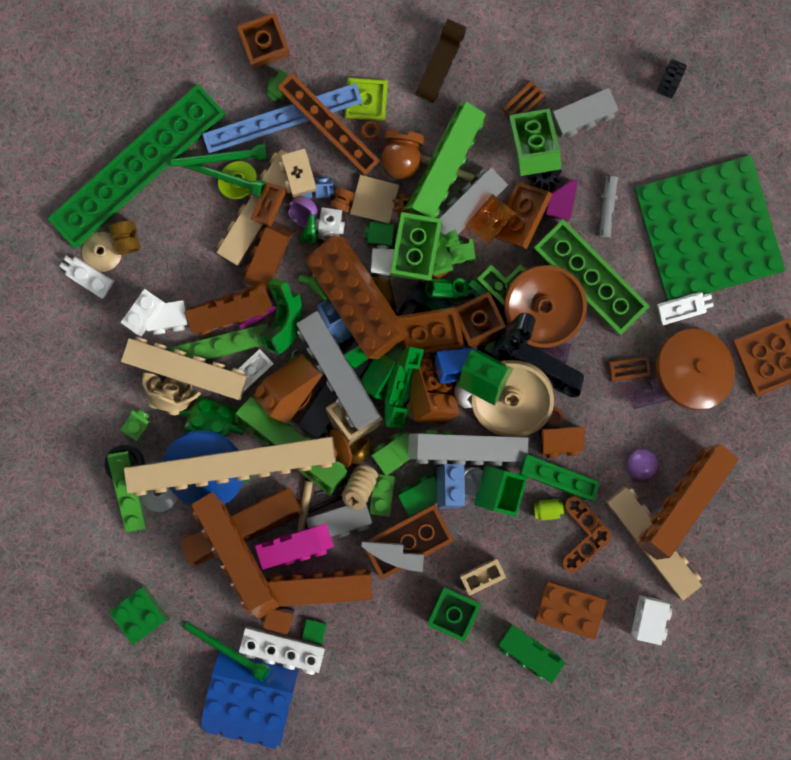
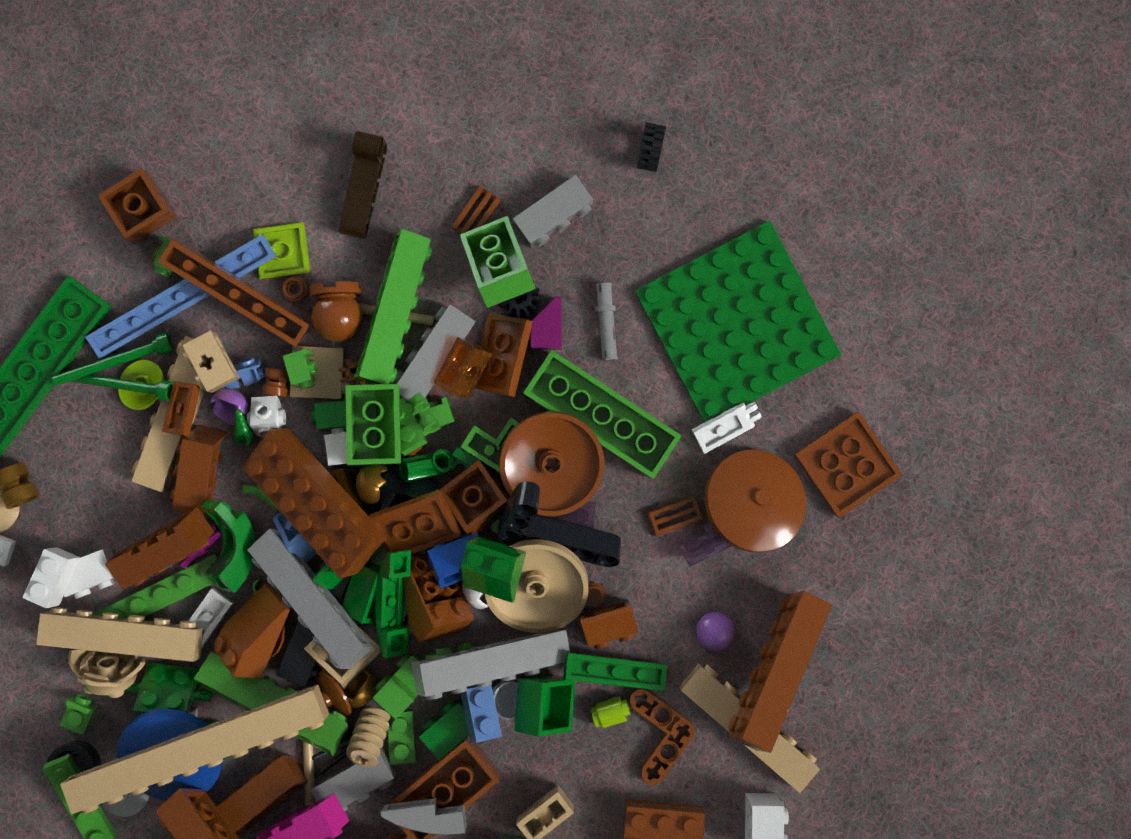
camera: 10 degrees left, 0 degrees up
(365, 193) = (301, 368): none -> bright green brick
(401, 292) = (368, 483): none -> pearl gold hair

